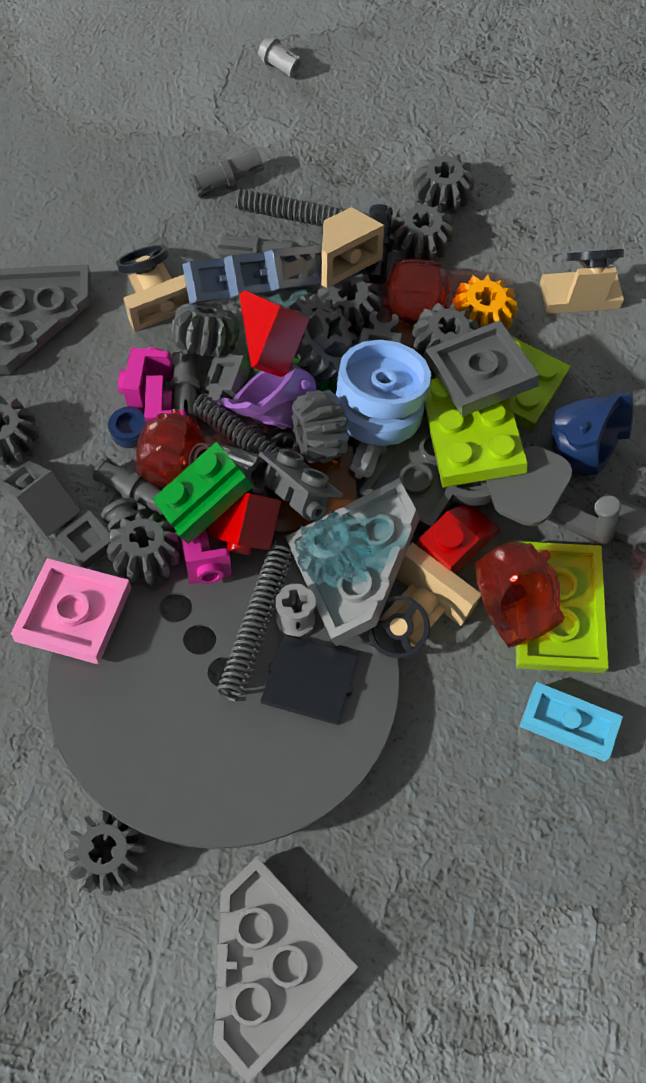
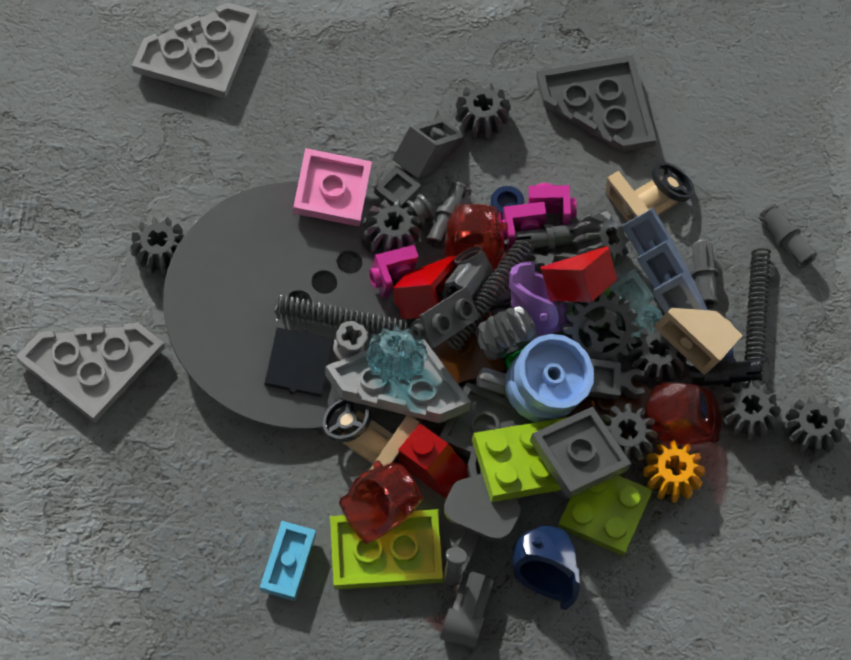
camera: 85 degrees right, 0 degrees up
(202, 492) = (432, 254): green plate -> none
(588, 288) = (717, 561): tan piece -> none

